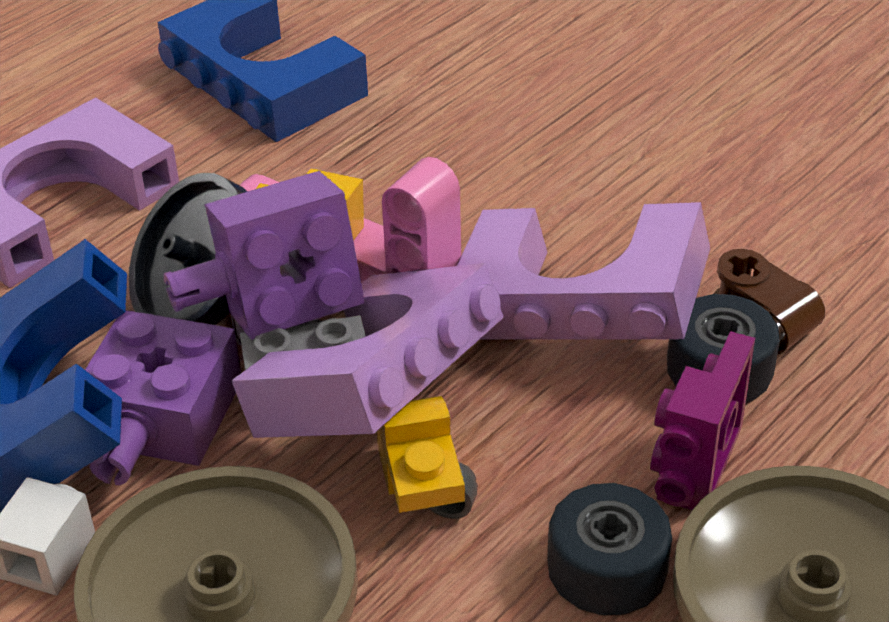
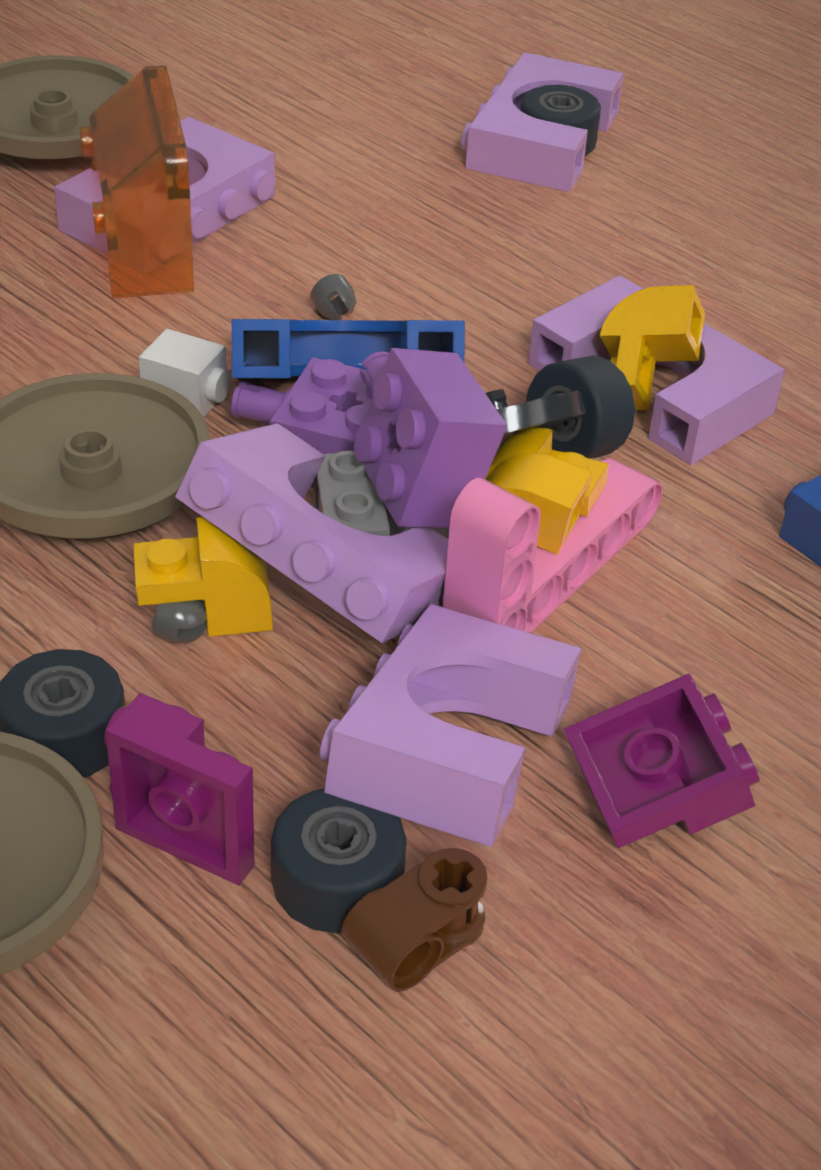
camera: 90 degrees right, 0 degrees up
(37, 169) = (651, 328): none -> yellow brick
(117, 213) = (606, 401): none -> black wheel
(577, 184) = (663, 762): none -> magenta plate

